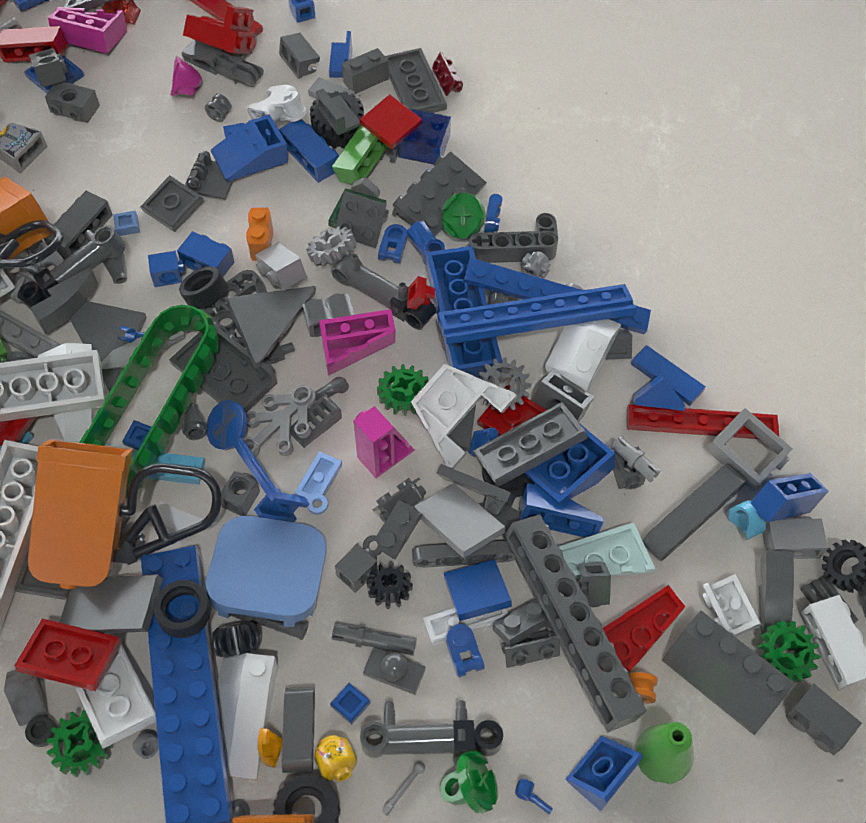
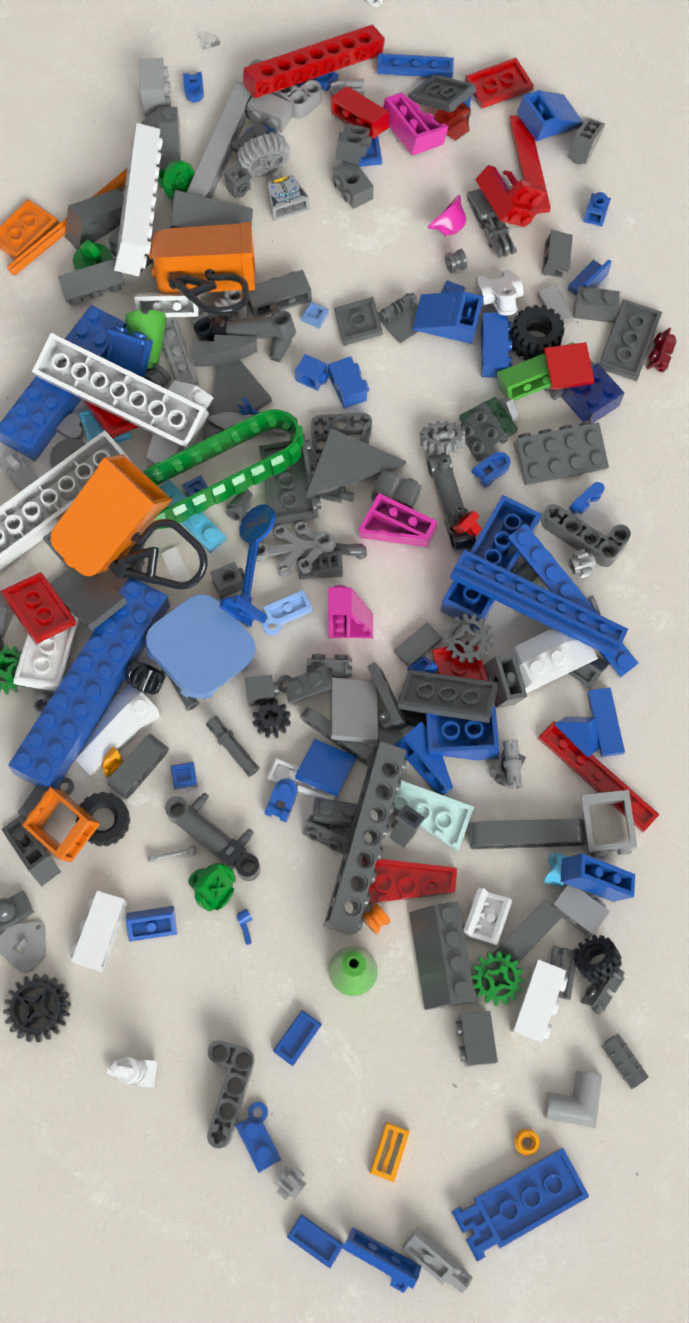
camera: 40 degrees right, 10 degrees up
(177, 589) = (117, 617): black tyre -> none
(203, 287) = (326, 415): black tyre -> none
(259, 231) = (399, 391): orange brick -> none
(280, 266) = (390, 428): light grey brick -> none
(335, 758) = (144, 802): yellow head -> none
(336, 112) = (534, 330): dark grey panel -> none
(394, 670) = (228, 777): dark grey tile -> none
(402, 391) = (399, 578): green gear -> none
(424, 239) = (516, 481): blue piece -> none
(448, 400) = (419, 620): white wing -> none
(463, 215) = (559, 484): green tile -> none
(603, 771) = (301, 948): blue slope -> none

